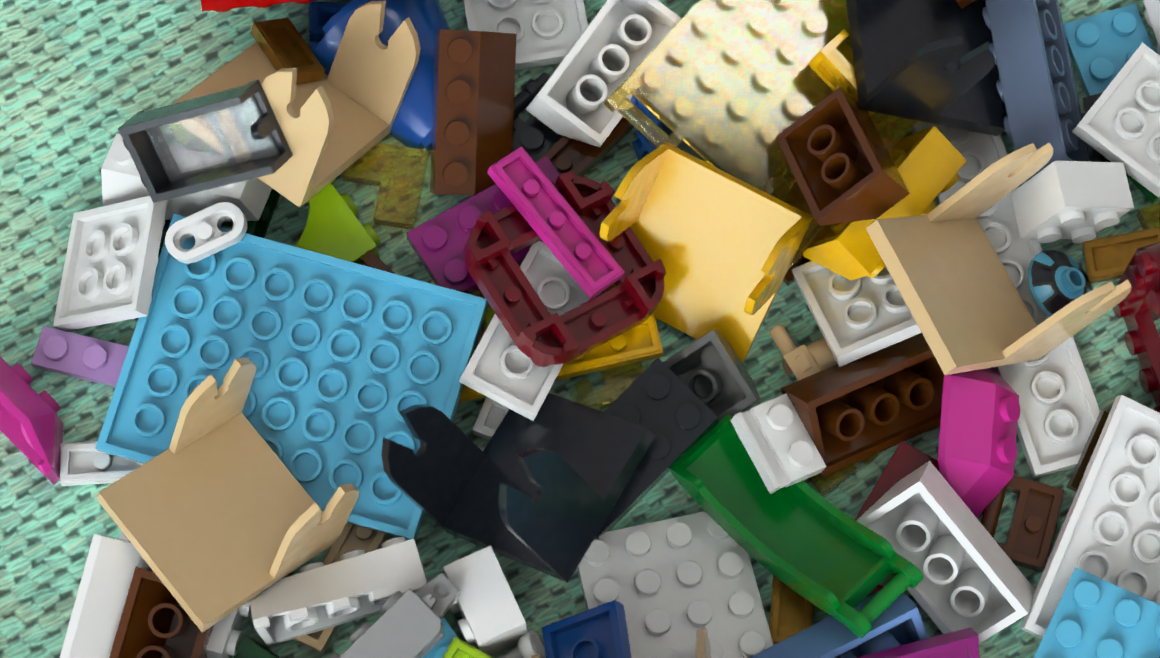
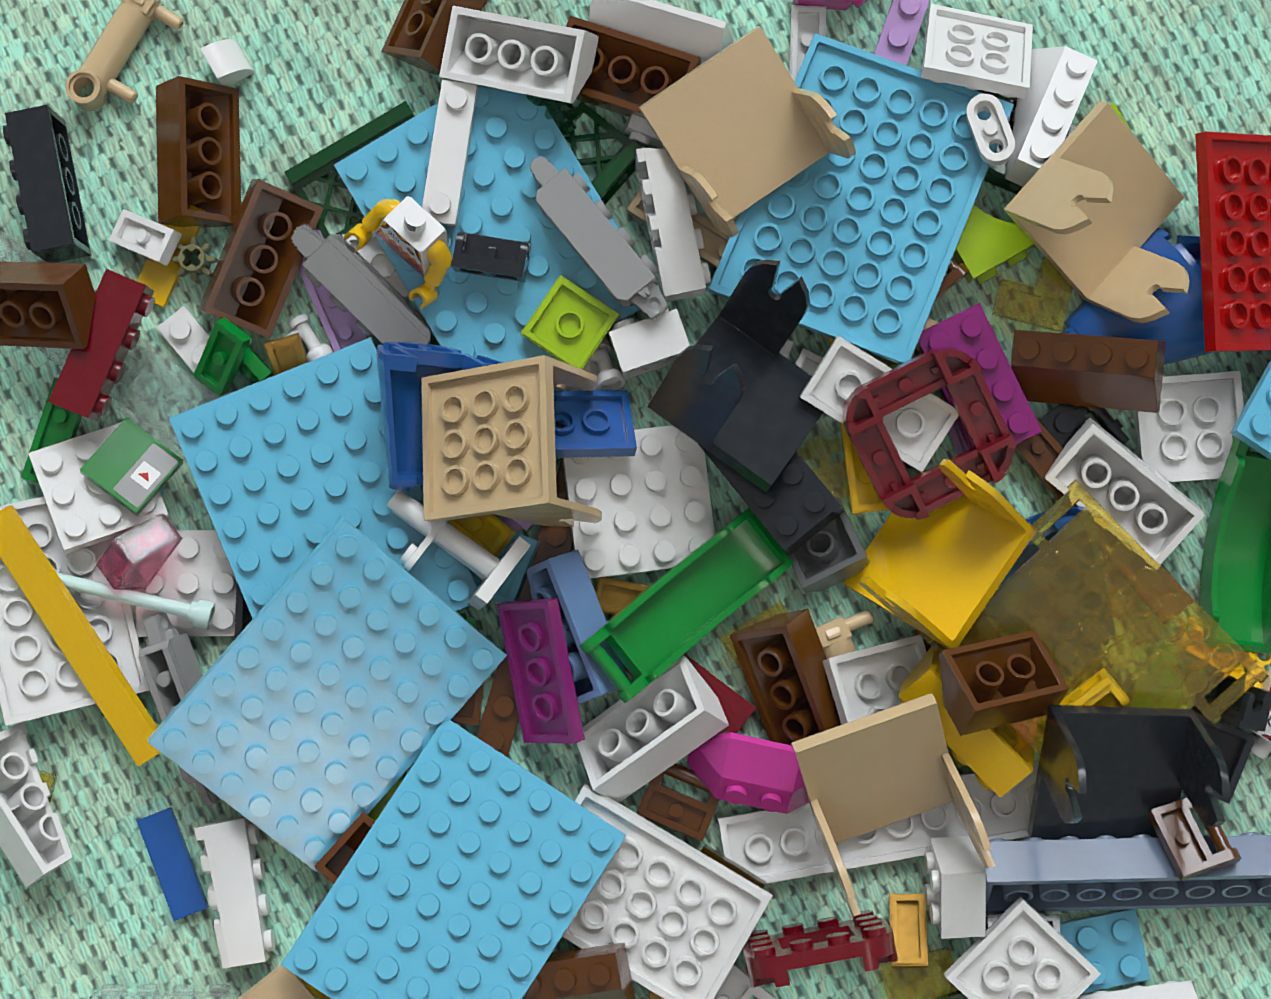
camera: 95 degrees right, 15 degrees up
(206, 142) = (1062, 128): door -> none
(287, 49) = (1163, 212): pearl gold tile -> none
(556, 222) = (970, 427): dark pink tile -> none
(778, 443) = (758, 599): white plate -> none
(1056, 280) = (883, 867): dish -> none

